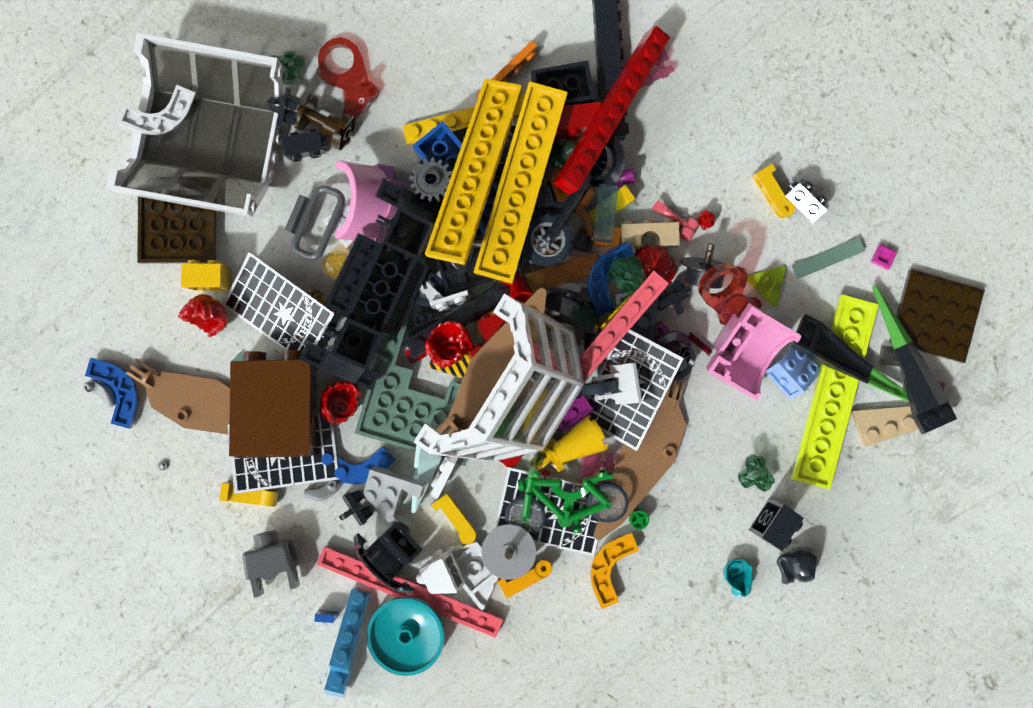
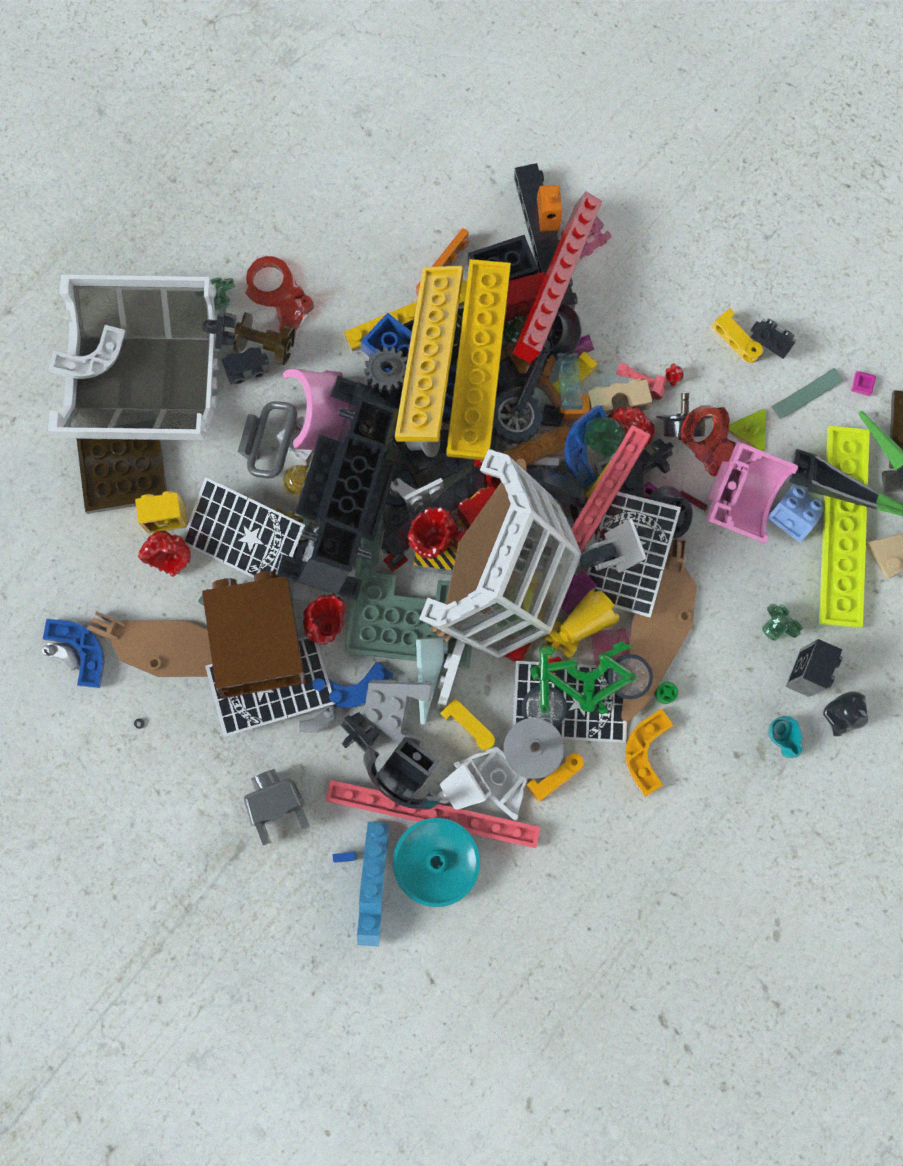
camera: 10 degrees left, 10 degrees down
(261, 497) = (250, 738): yellow leg -> none
(618, 34) = (549, 203): none -> orange torso

